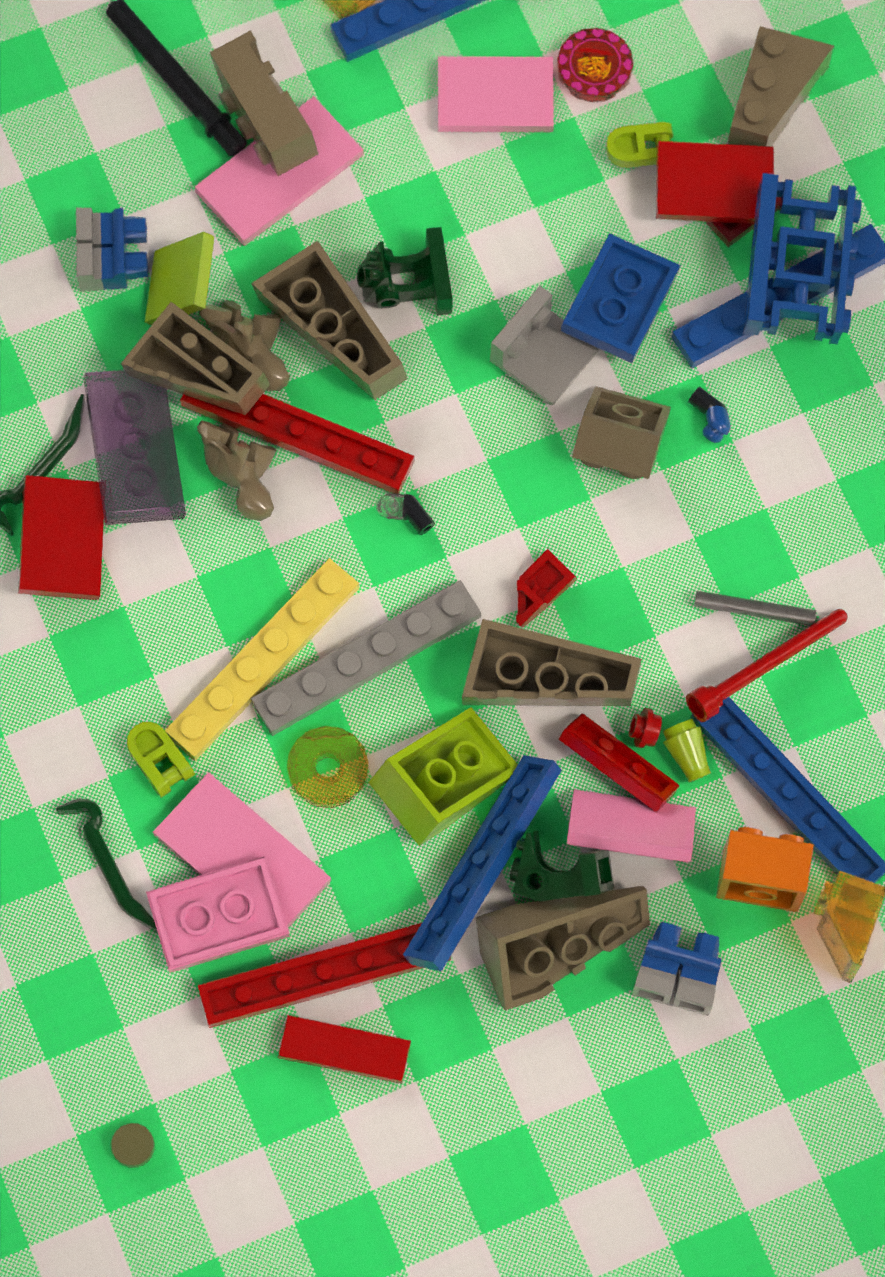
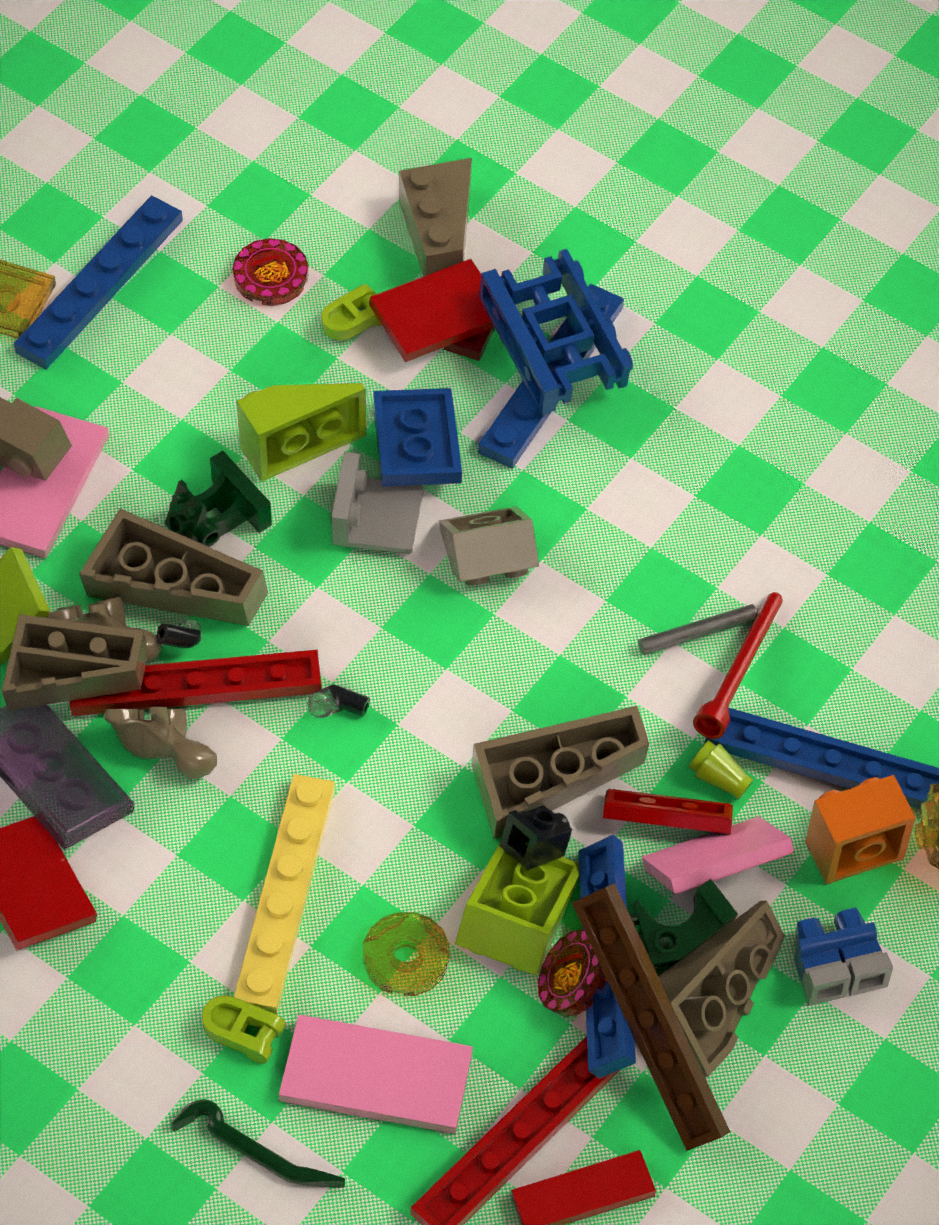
camera: 30 degrees left, 15 degrees down
(217, 914) = (388, 1133): bright pink tile -> none
(311, 386) = (186, 635): none -> black arm
(366, 658) = (379, 845): light grey plate -> none
(446, 863) = (570, 975): none -> clear red tile
(475, 940) = (651, 1017): none -> reddish brown plate
(492, 726) = (543, 829): none -> black brick
(495, 94) = (197, 333): bright pink tile -> none
(521, 235) = (298, 423): none -> lime slope
(541, 586) = (500, 701): red slope -> none
(645, 728) = (672, 771): red plate -> none
(715, 412) = (556, 489): blue arm -> none

